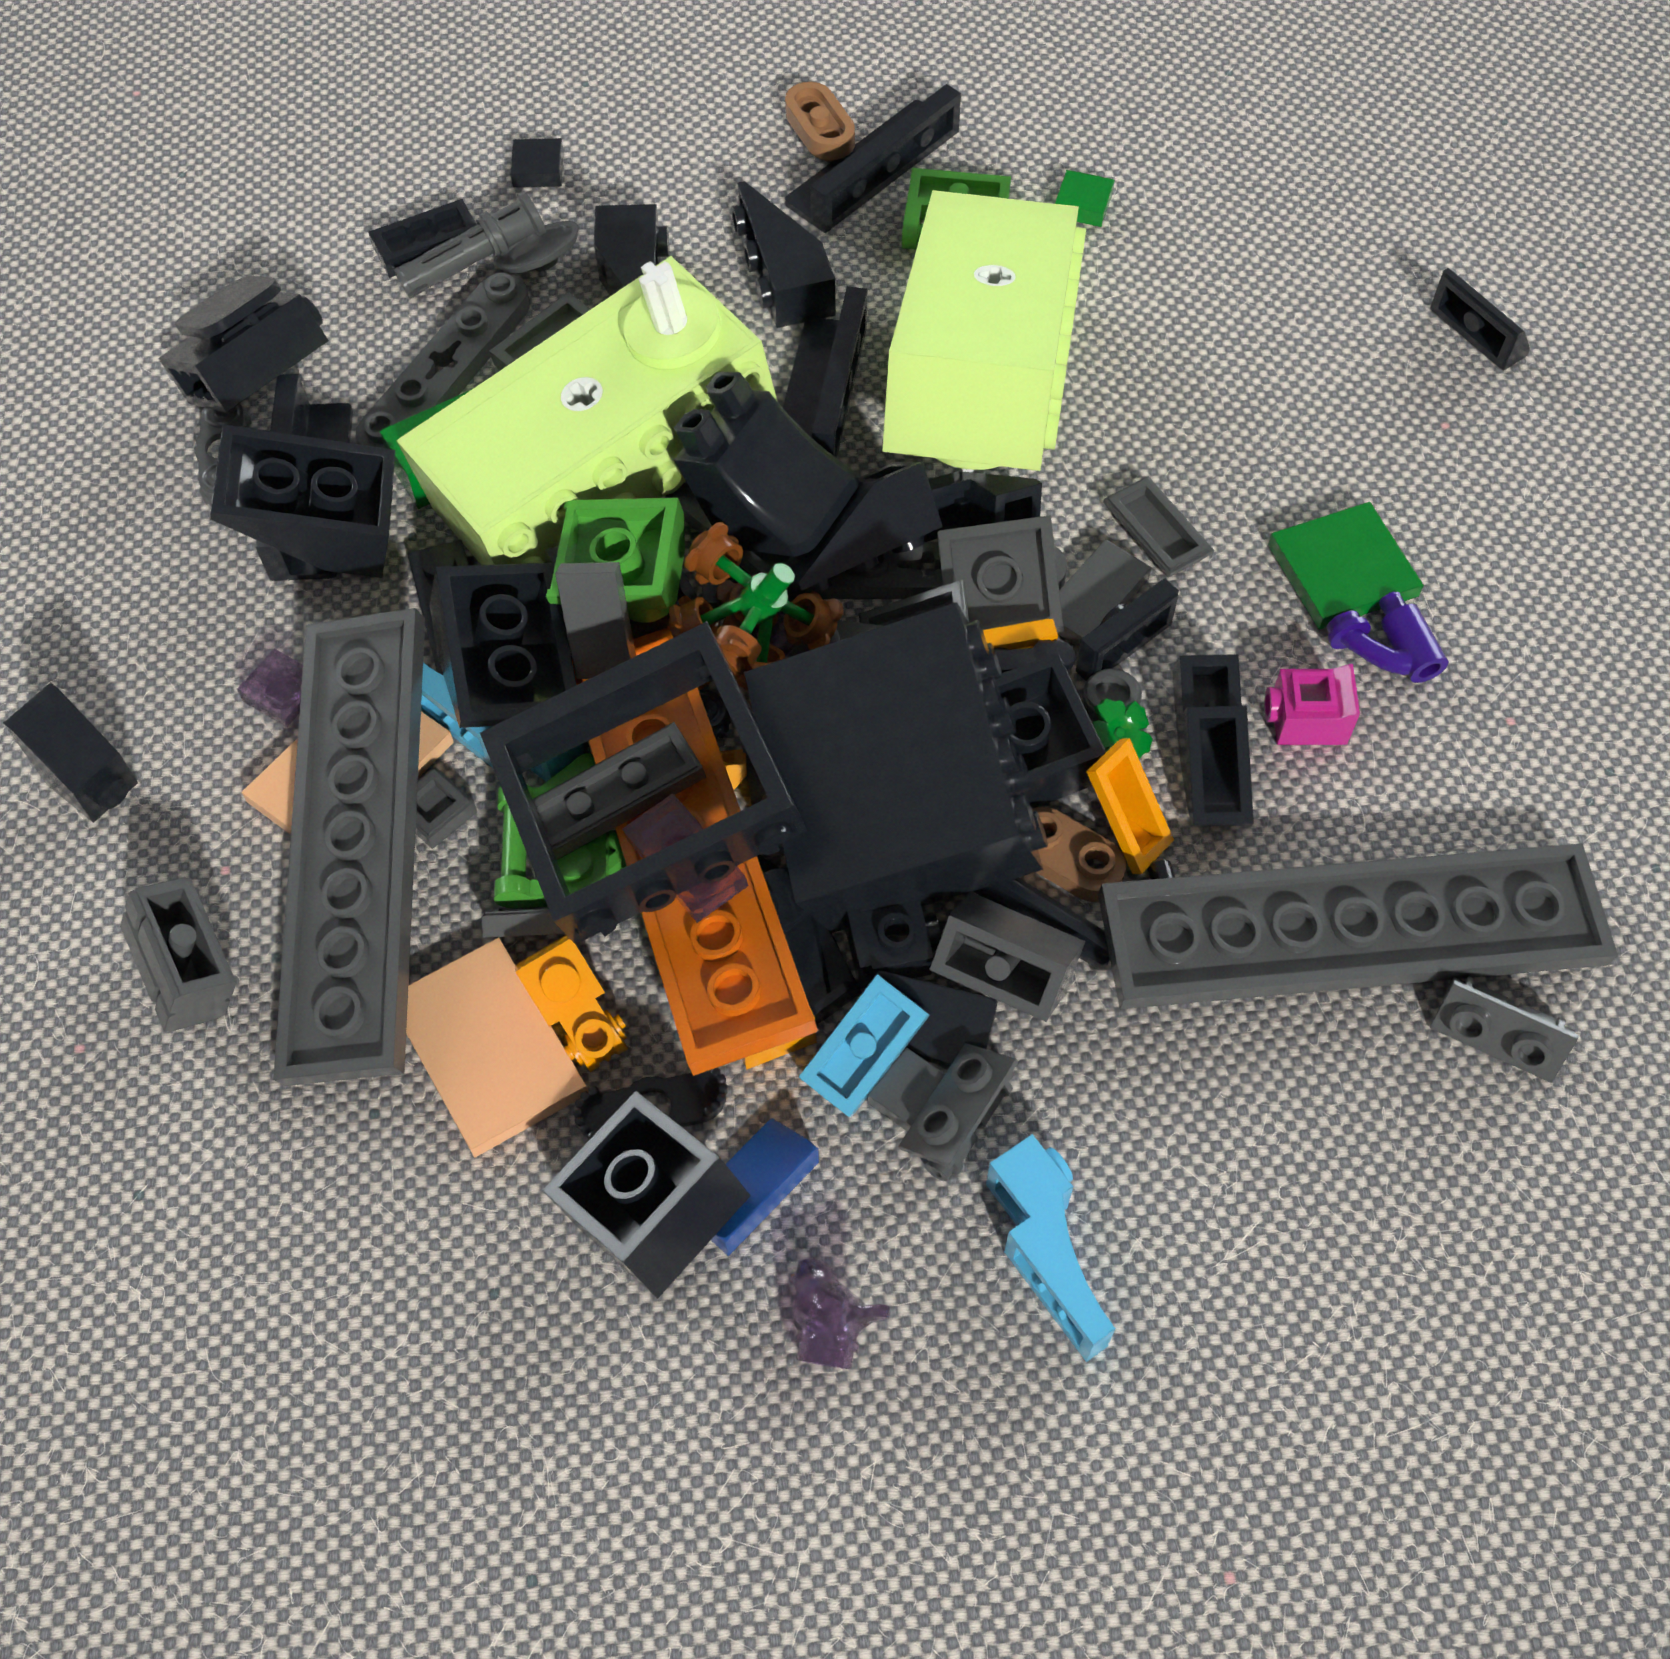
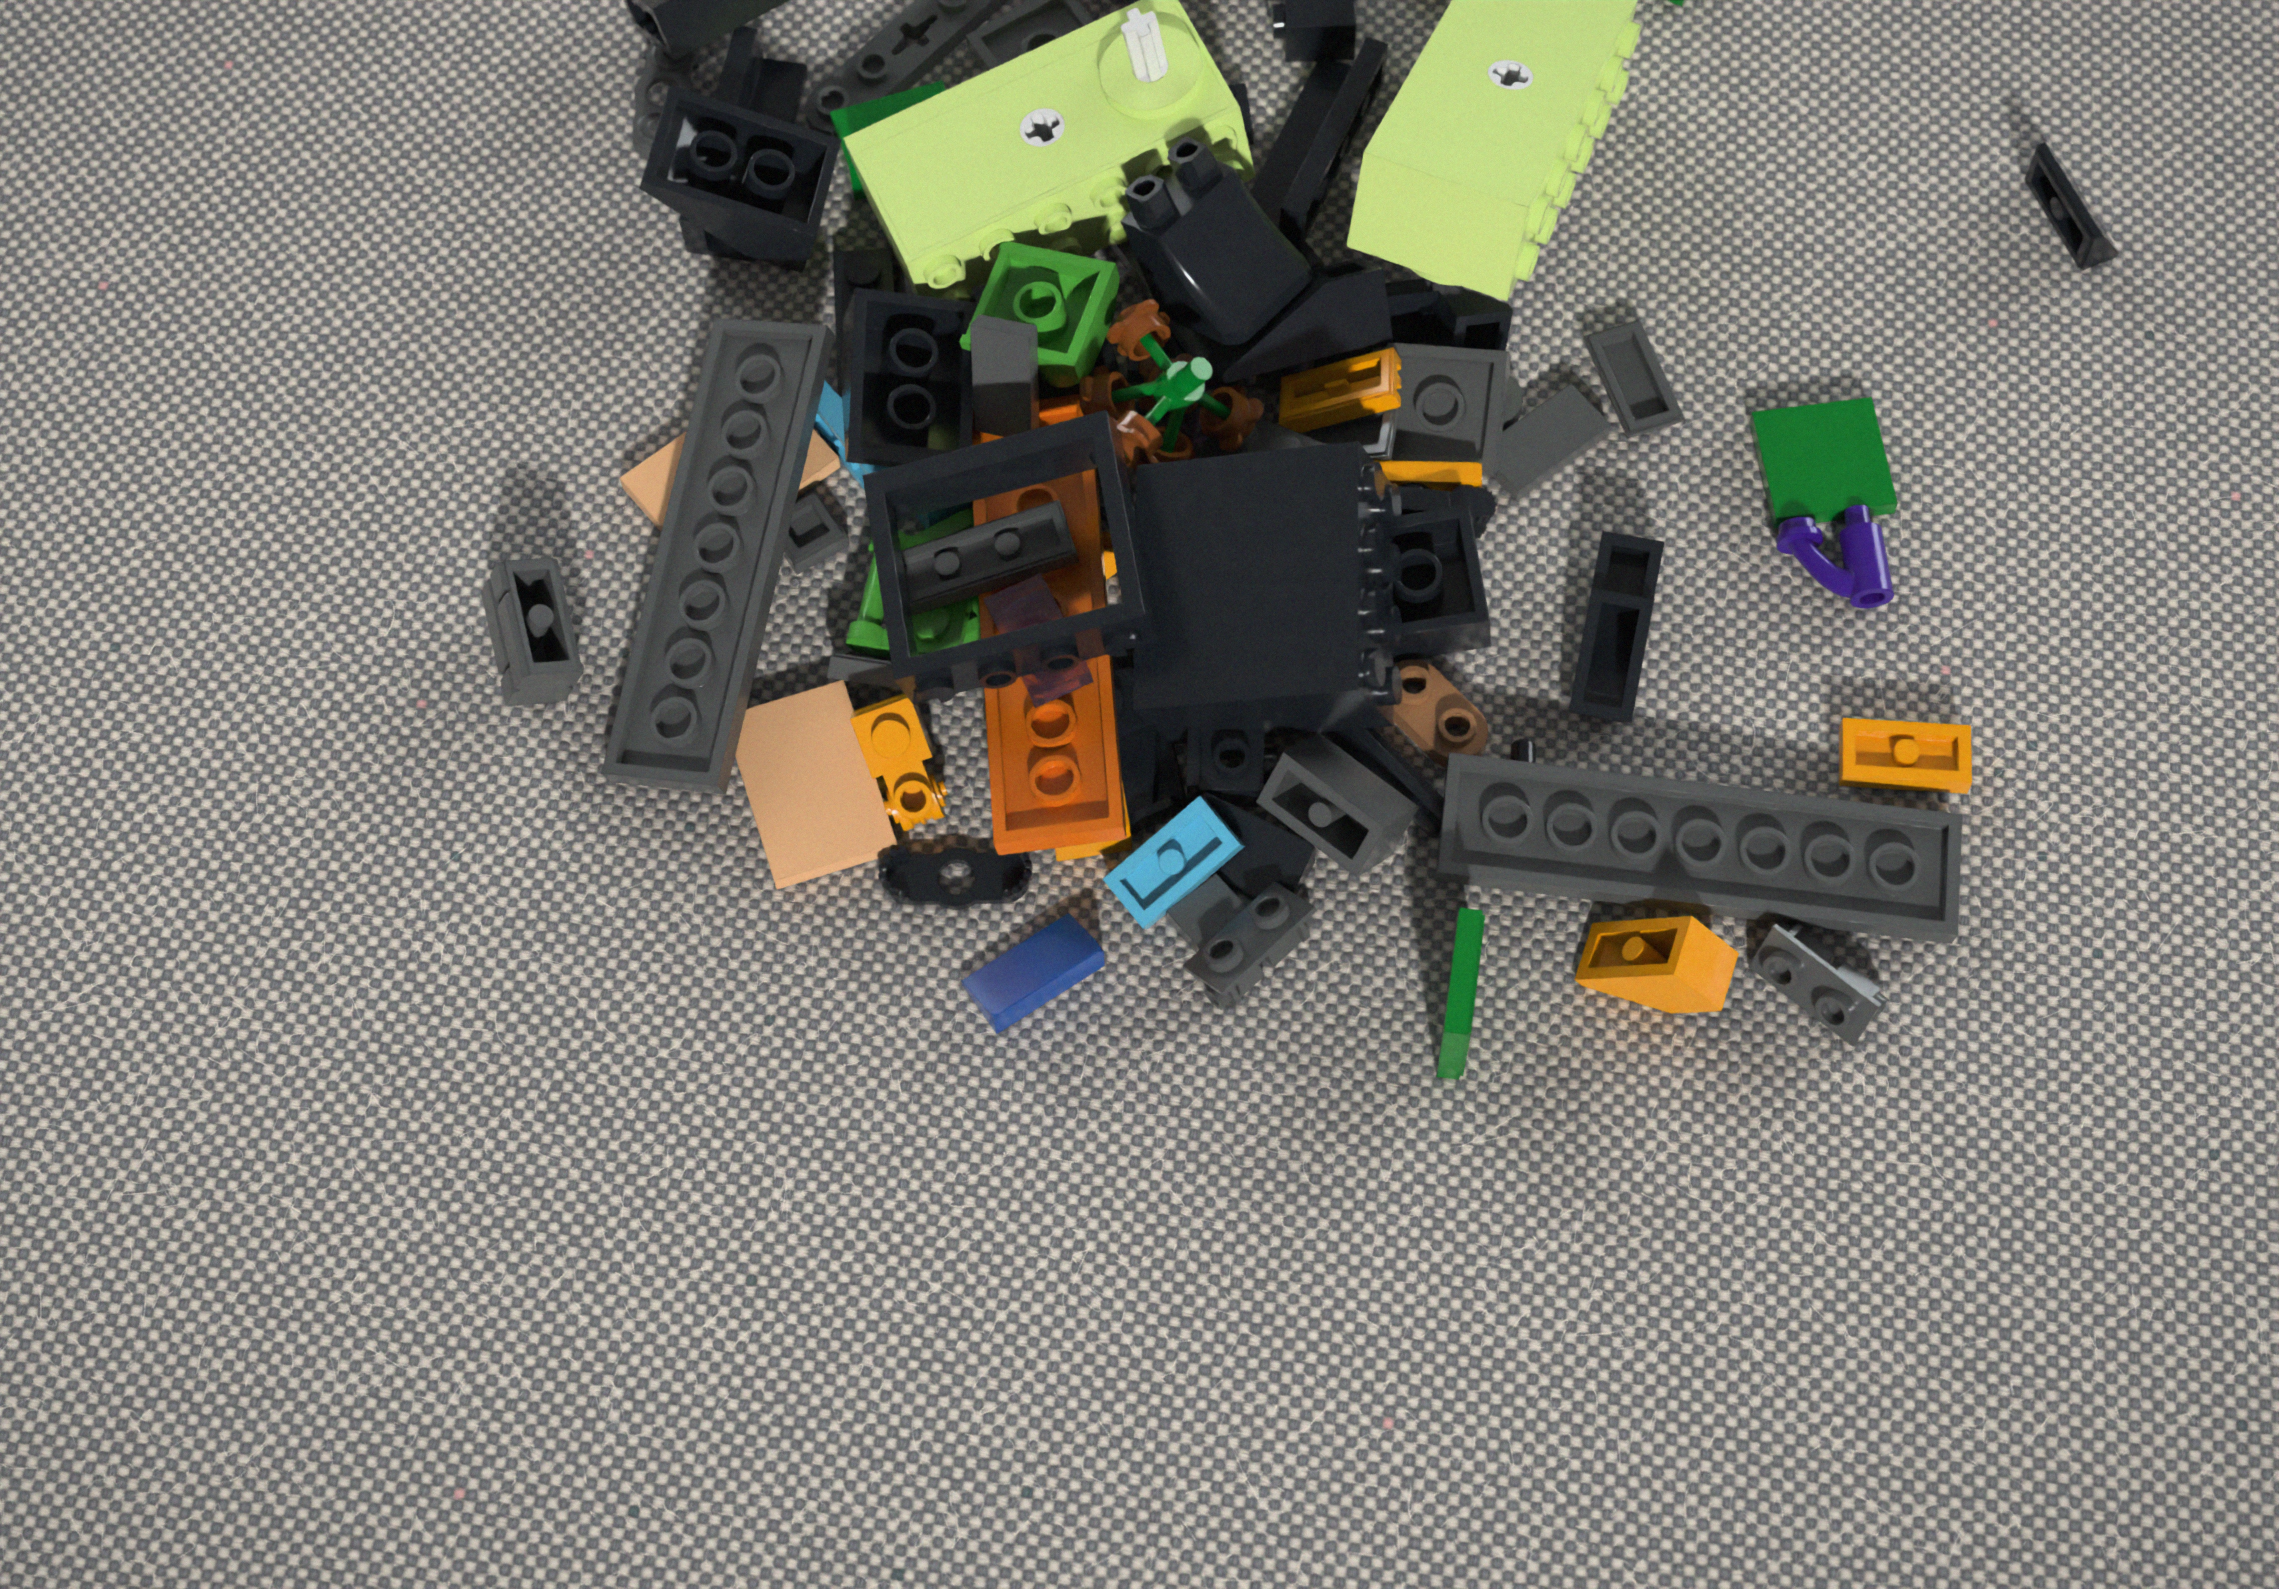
camera: 15 degrees right, 5 degrees up
(70, 753) = (461, 407): black slope -> none
(275, 688) = (672, 374): clear purple plate -> none
(647, 1193) = (930, 956): black brick -> none
(829, 1316) = (1075, 1108): clear purple animal -> none
(906, 581) = (1340, 399): none -> light orange tile
(1035, 1193) = (1303, 1040): medium azure slope -> none
(1110, 684) = (1527, 558): dark grey tile -> none
(1122, 722) = (1522, 598): green plant -> none
(1127, 629) = (1561, 490): black plate -> none
(1130, 805) = (1504, 679): light orange slope -> none
(1182, 1114) = (1461, 993): none -> green tile
(1313, 706) = (1732, 611): dark pink window -> none
(1353, 1043) = (1659, 963): none -> light orange slope
(1508, 802) = (1905, 755): none -> light orange plate

